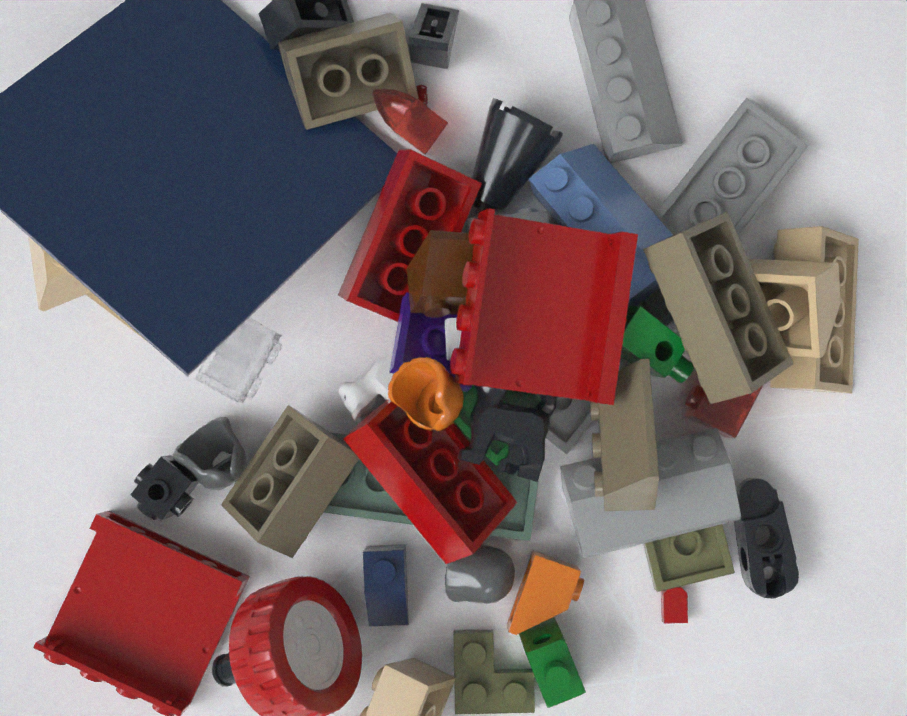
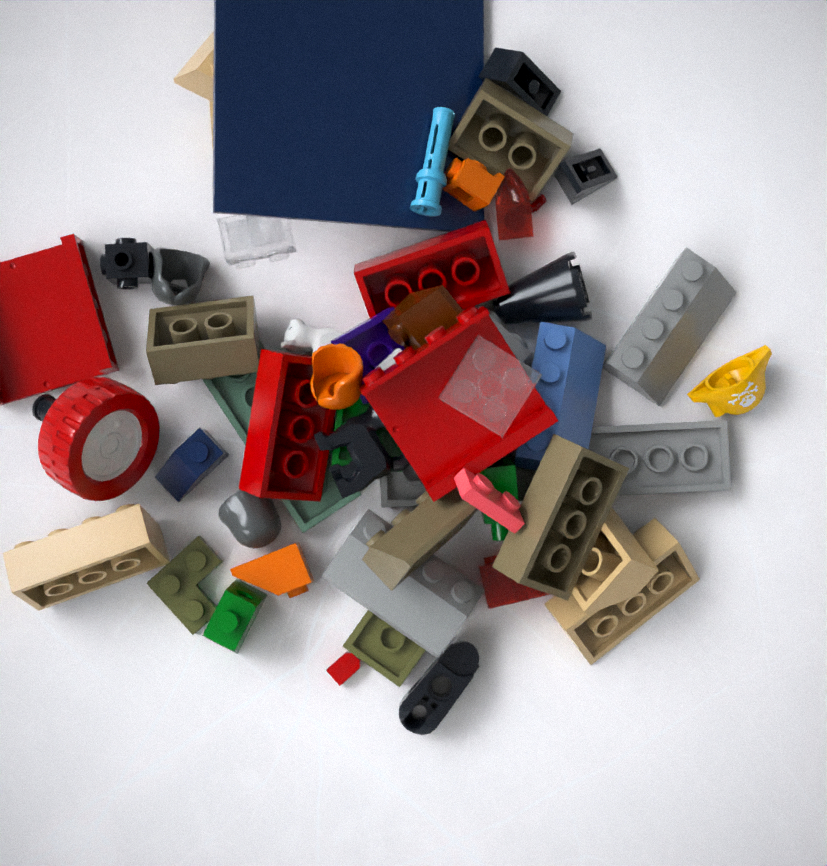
camera: 50 degrees right, 0 degrees up
(323, 161) = (432, 177): none -> medium azure pin
(357, 134) = (471, 183): none -> orange brick
(555, 267) = (490, 386): none -> clear plate
(649, 357) = (482, 495): none -> coral plate
(722, 63) = (735, 385): none -> yellow hat

